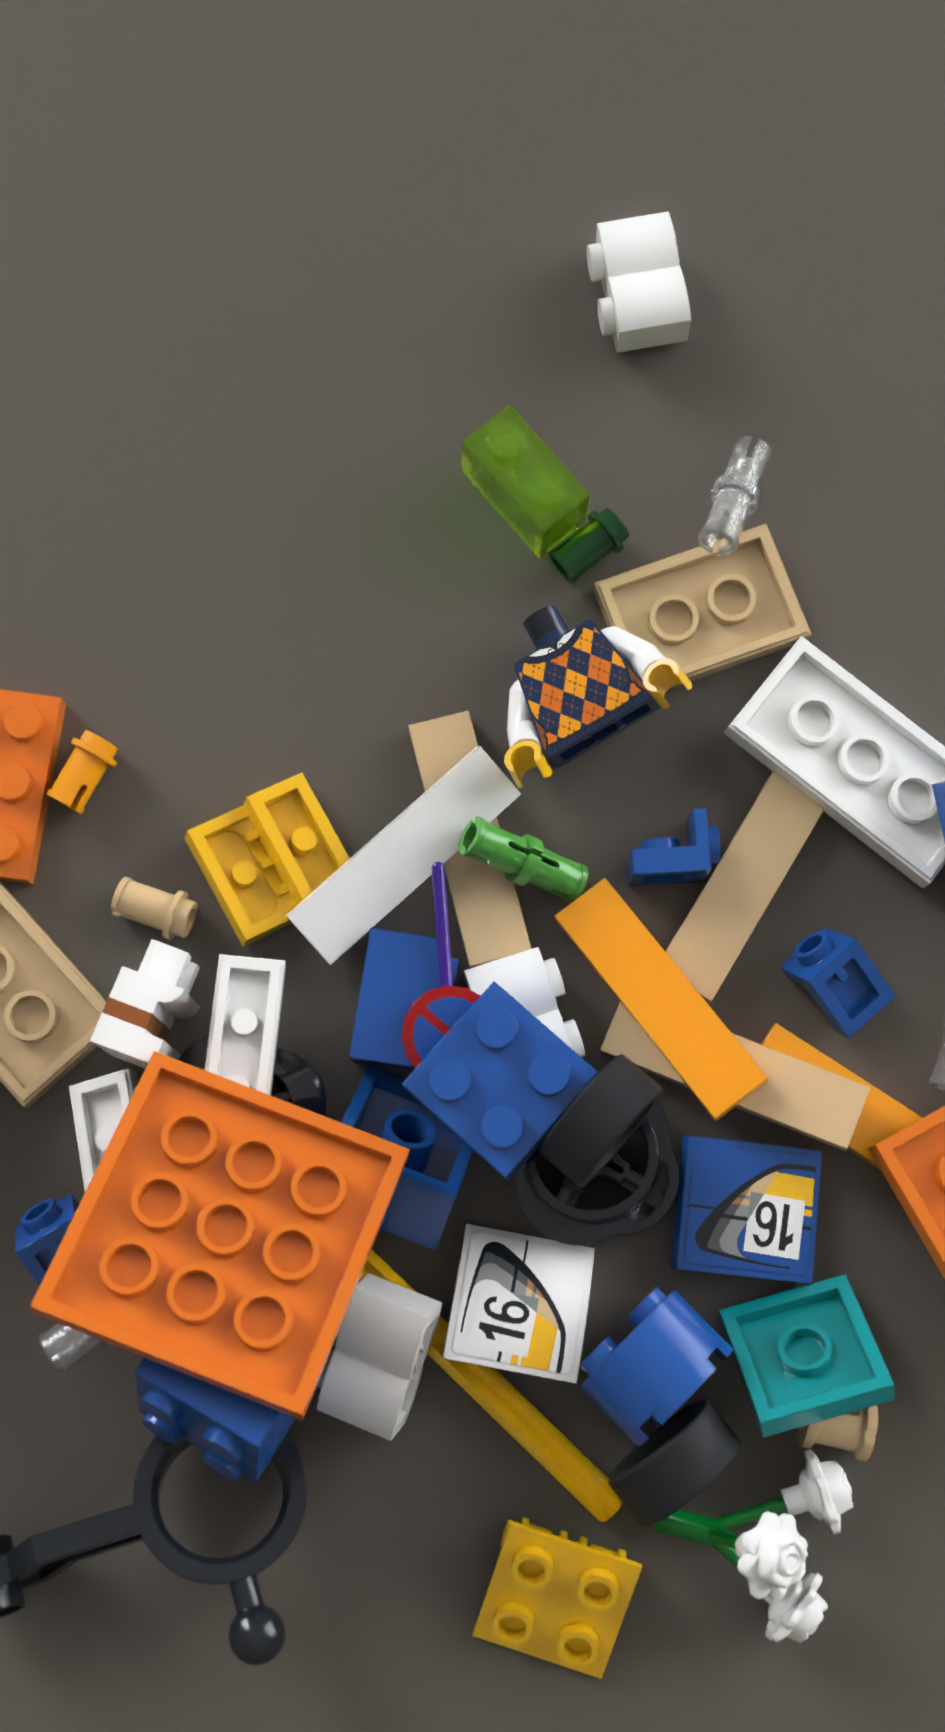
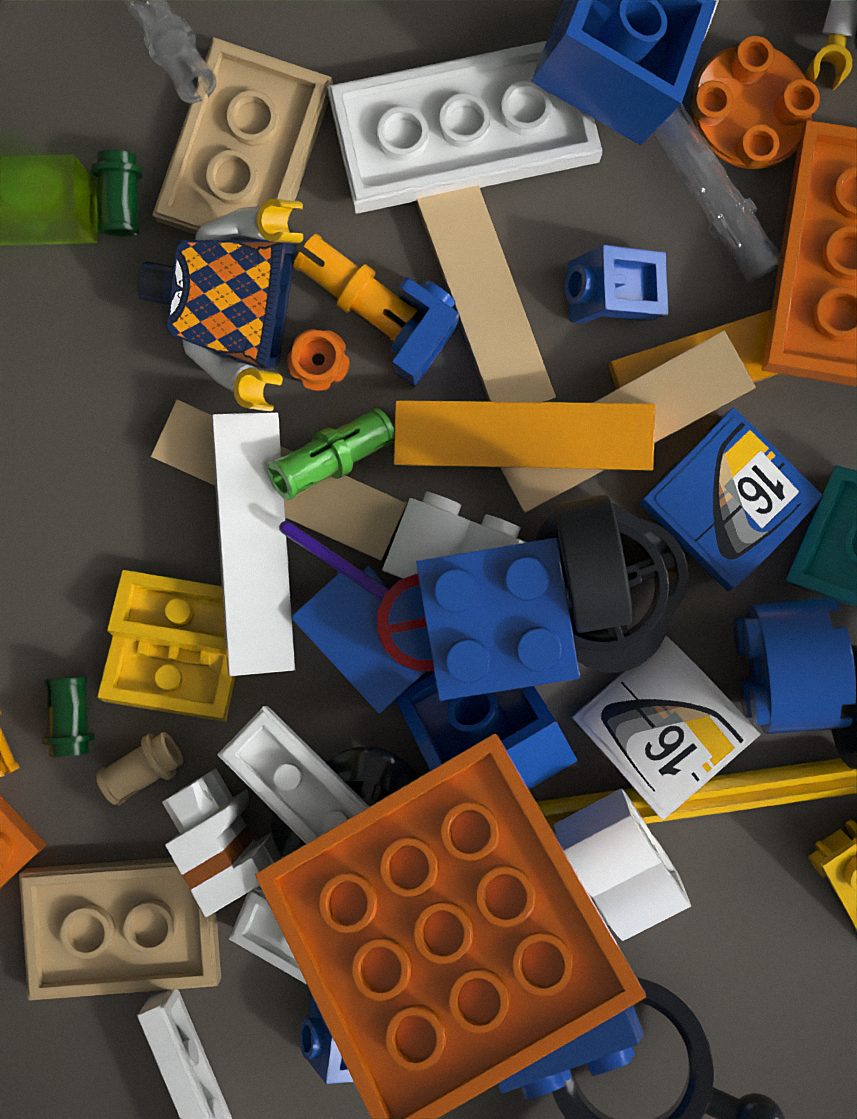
camera: 50 degrees left, 10 degrees up
(152, 819) = (67, 717): none -> dark green pin
(591, 777) = (318, 342): none -> orange plate
(666, 776) = (354, 287): none -> light orange pin

